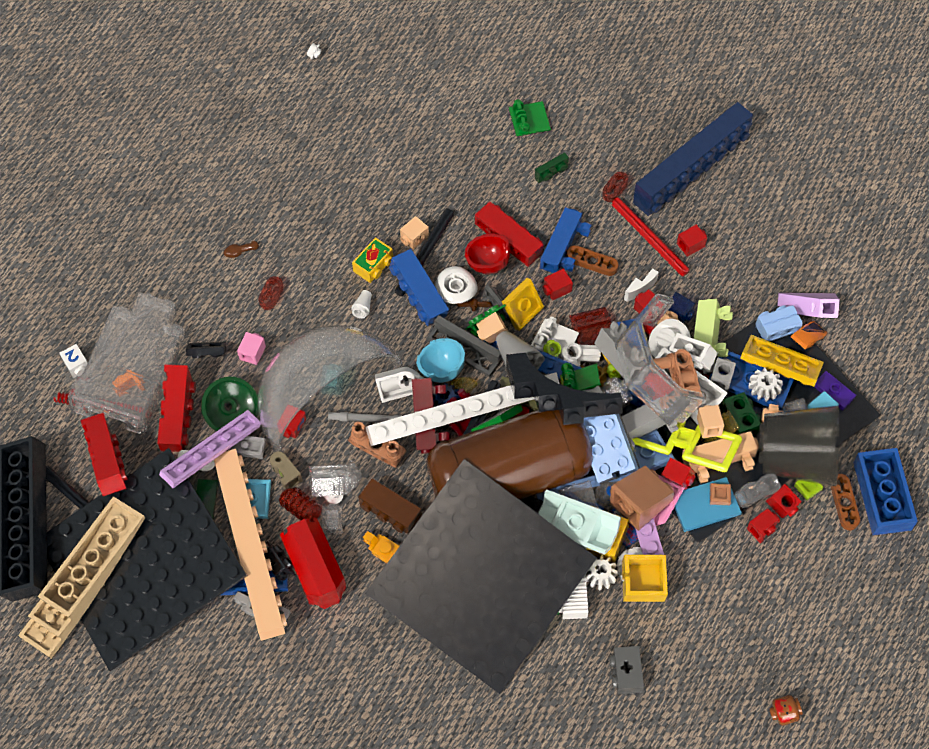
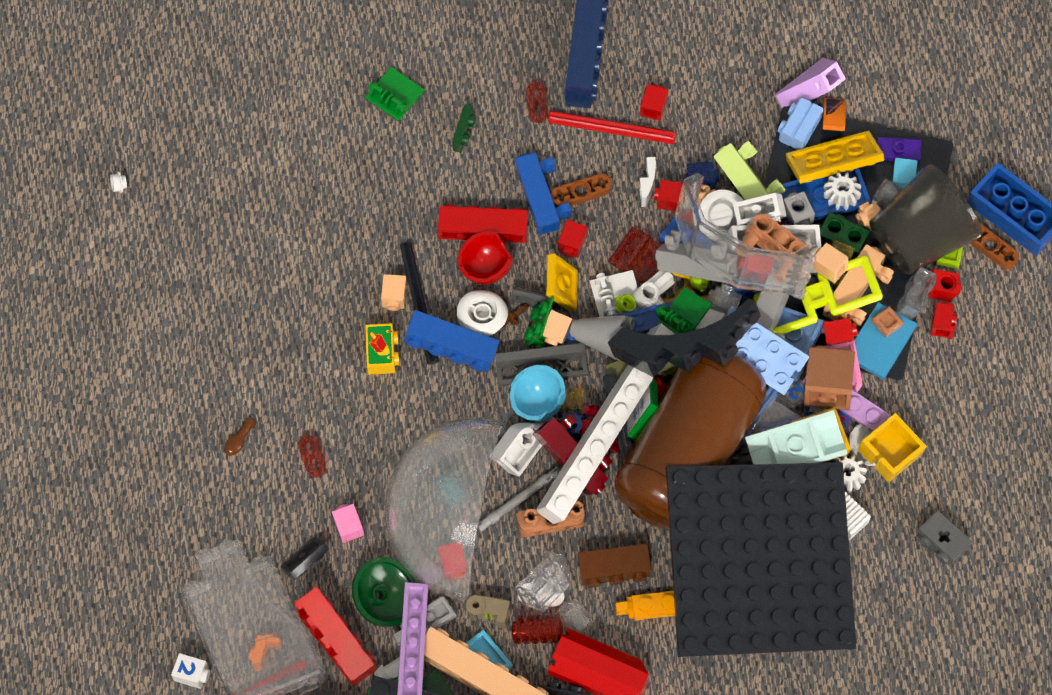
camera: 40 degrees left, 5 degrees up
(362, 305) = (411, 400): white cone -> none

